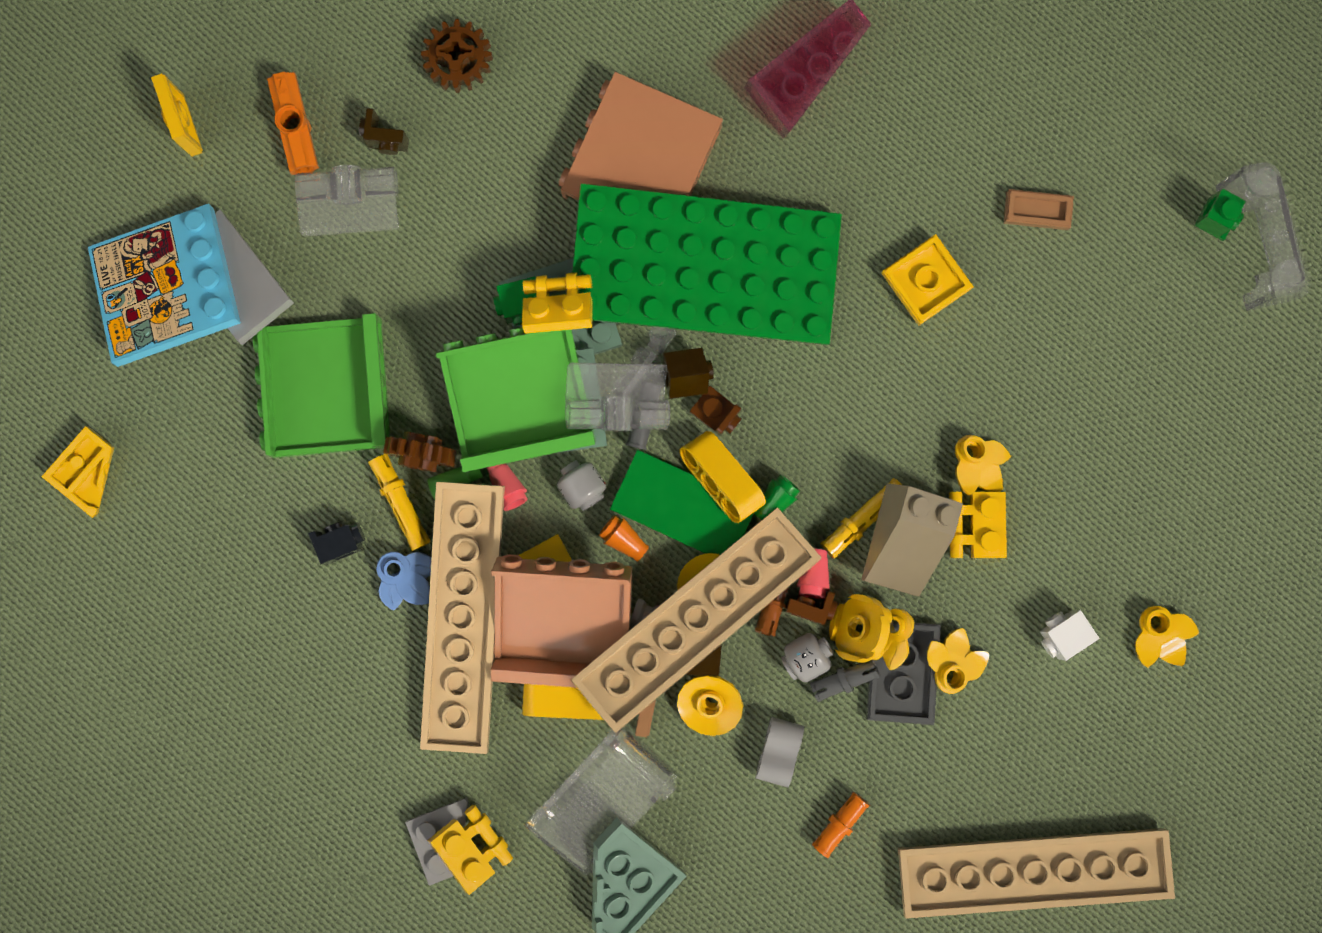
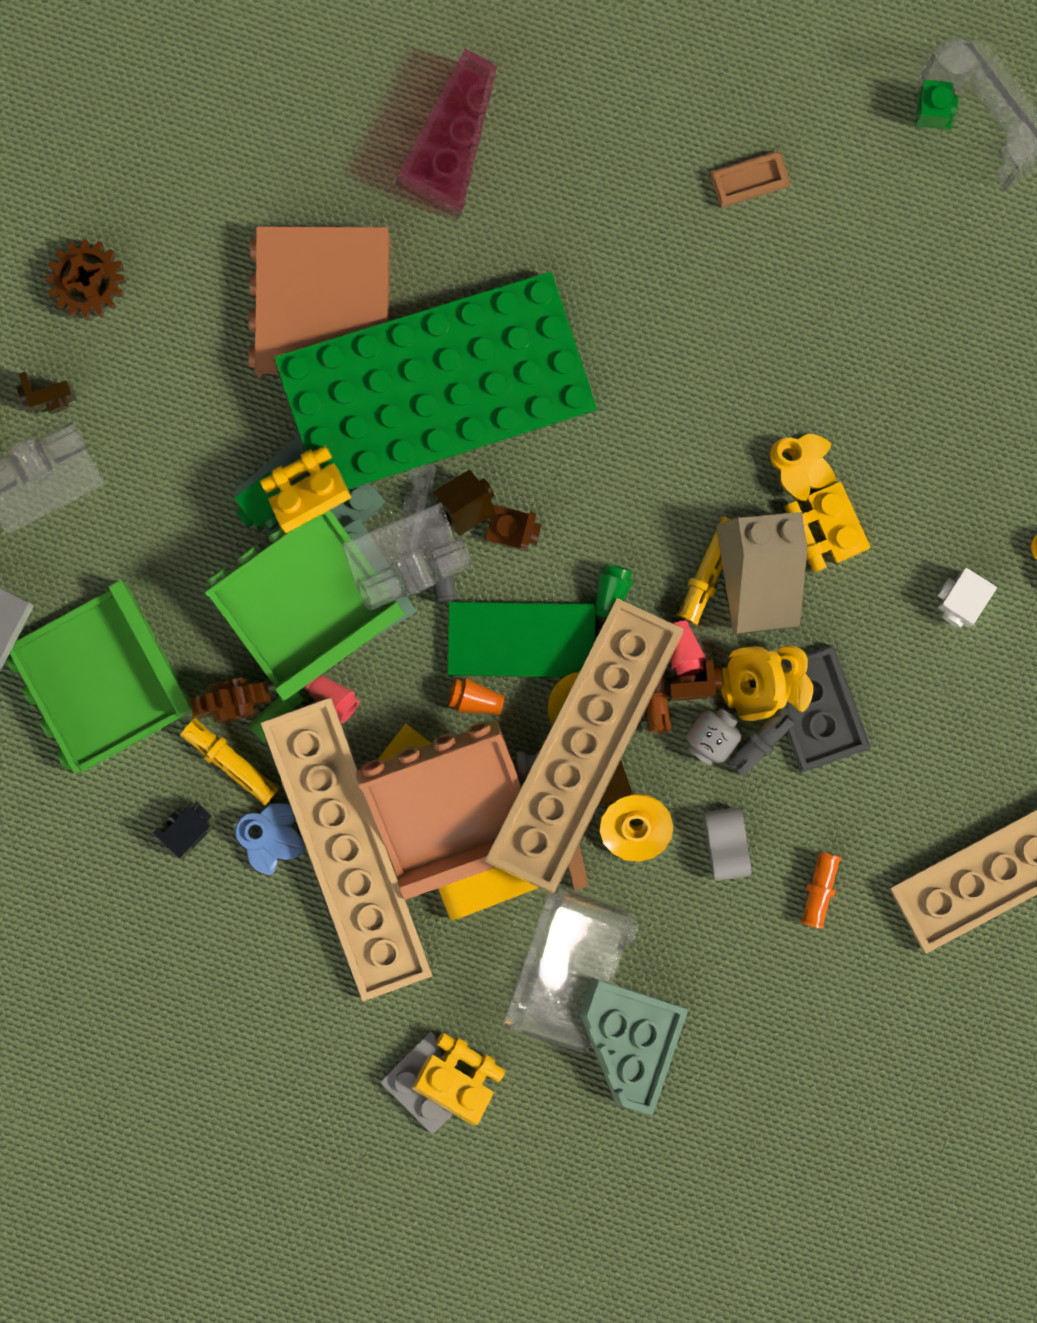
camera: 25 degrees left, 0 degrees up
(581, 485) = (408, 663): light grey head -> none
(722, 476) = (547, 591): yellow beam -> none
(927, 279) = (668, 300): yellow plate -> none
(956, 657) = (865, 670): yellow plate -> none

